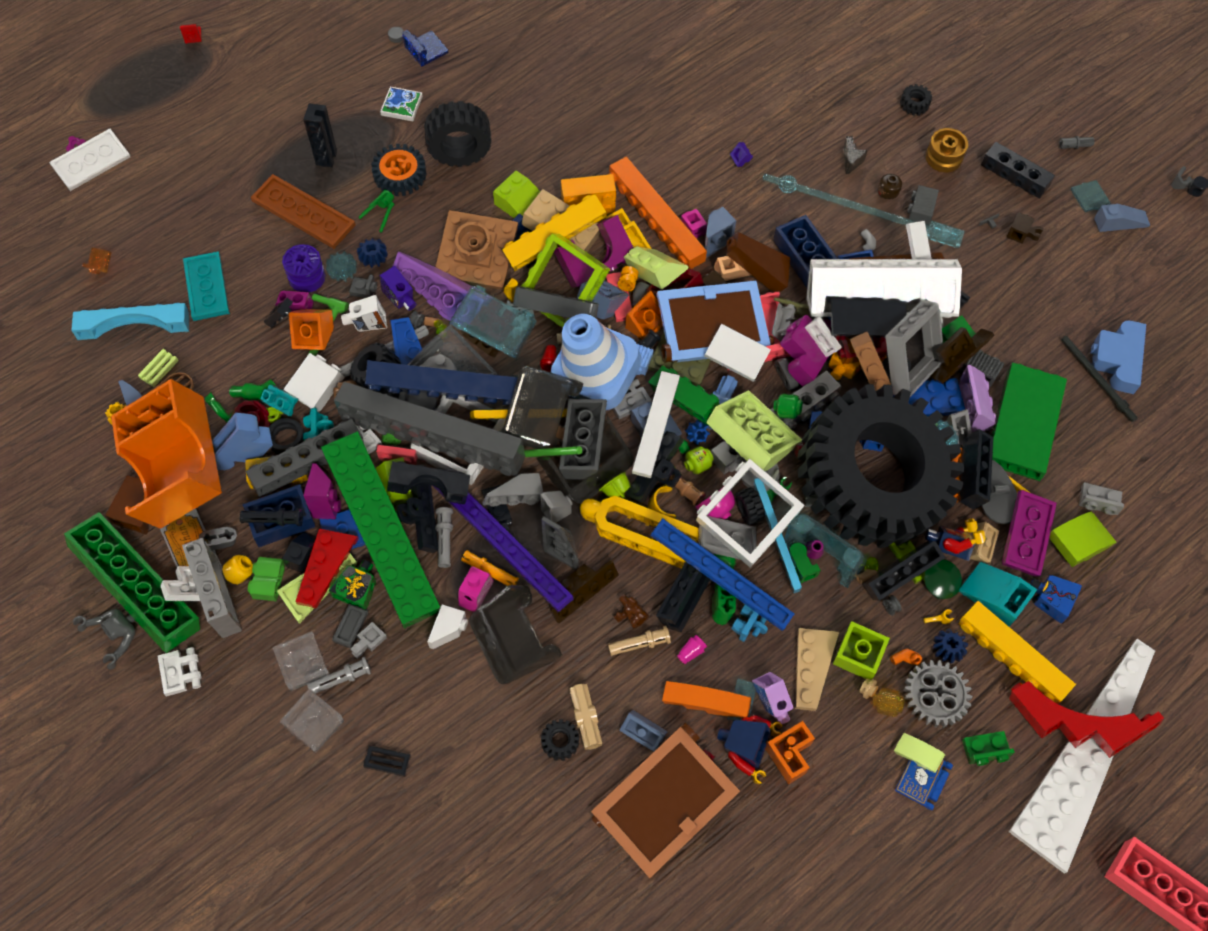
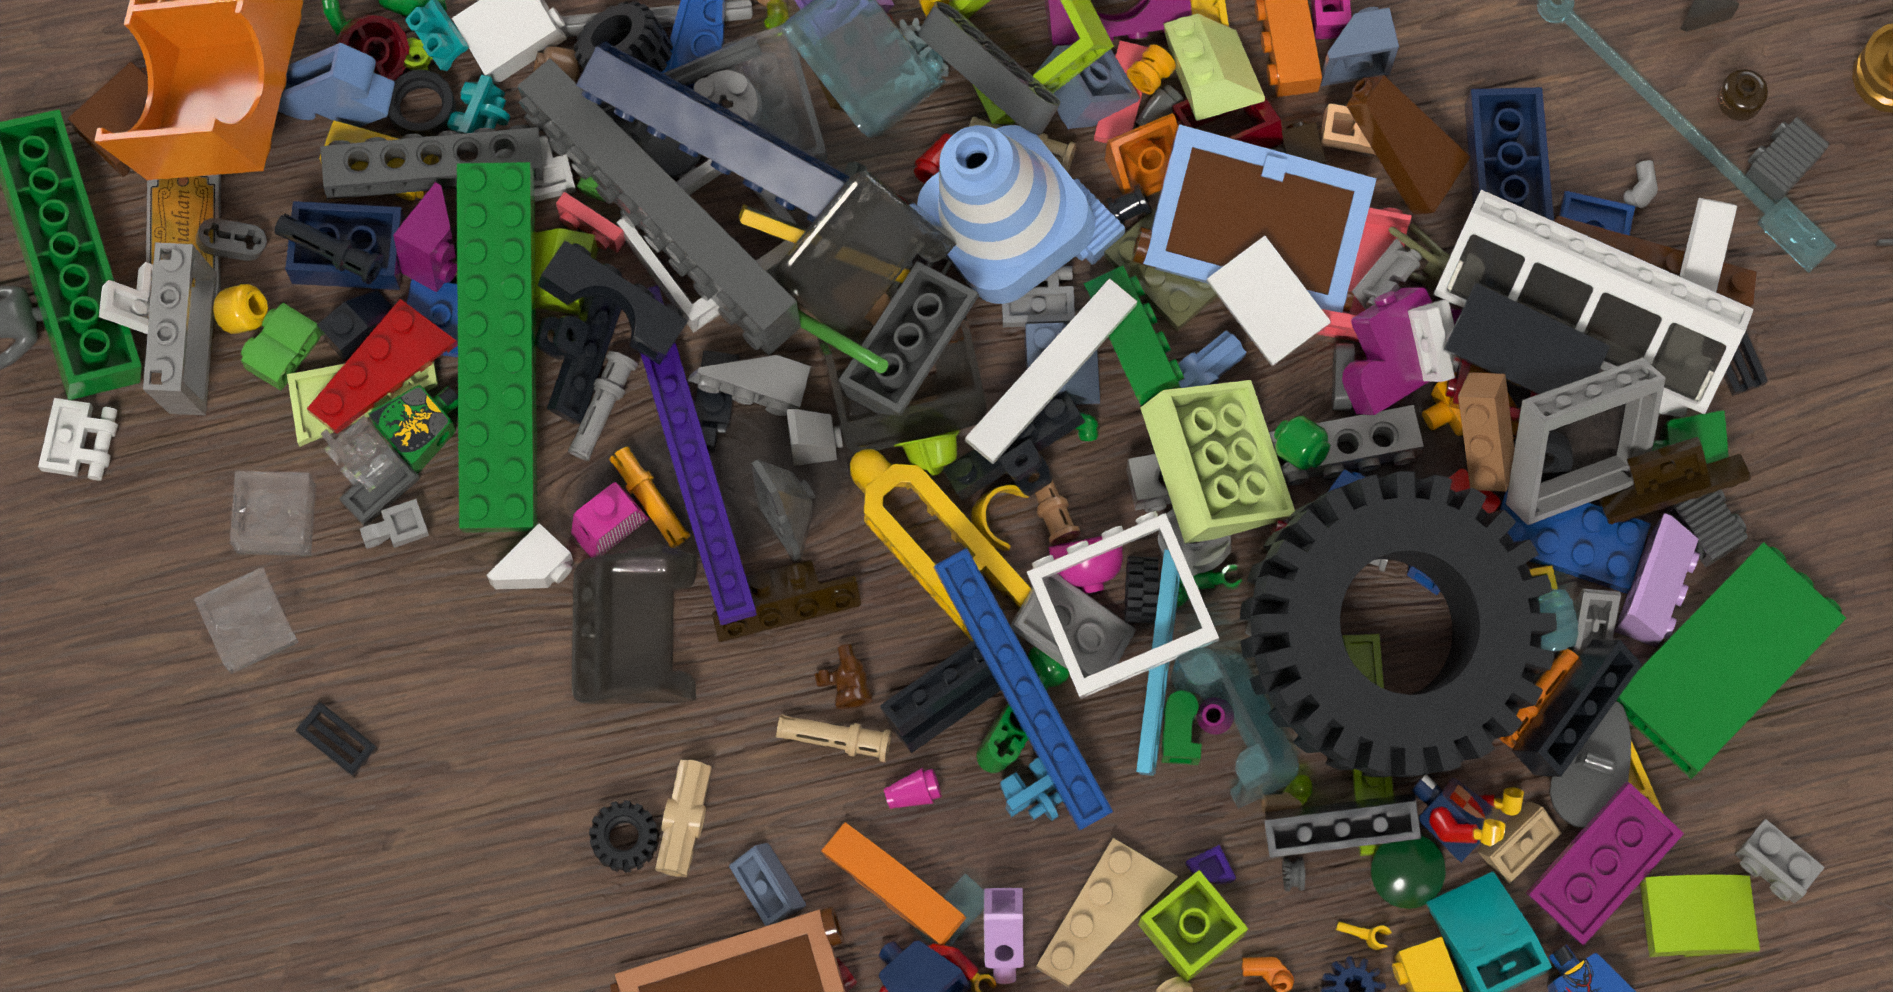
camera: 25 degrees right, 10 degrees up
(335, 611) = (364, 454): none -> clear bracket
(348, 670) = (366, 566): light grey pin -> none
(697, 432) = (1123, 414): blue gear -> none
(698, 460) = (1099, 466): lime head -> none
(851, 616) = (1213, 866): none -> dark purple tile

